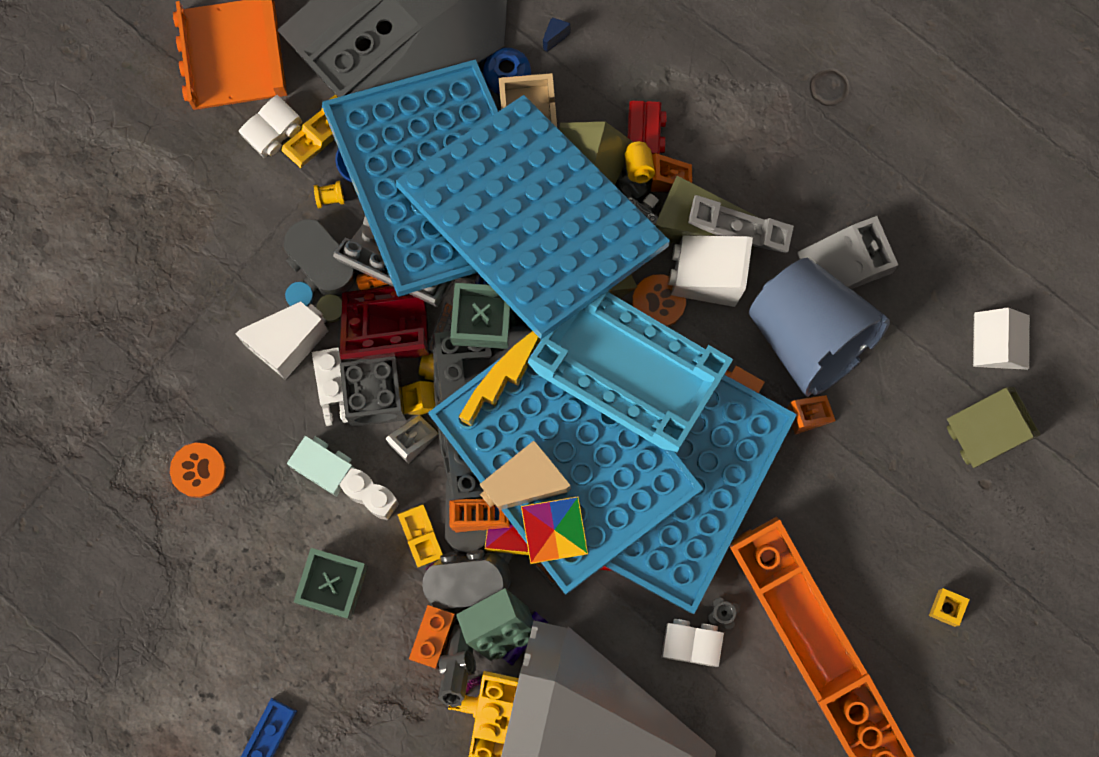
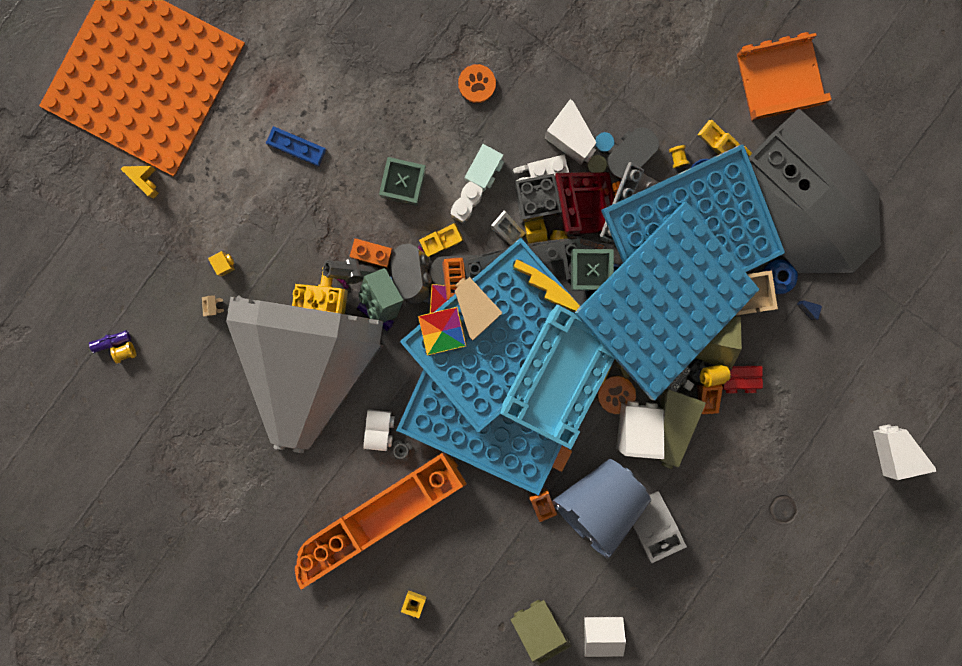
camera: 80 degrees right, 10 degrees up
(271, 126) = (726, 111): white brick -> none
(727, 222) = (673, 445): light grey slope -> none

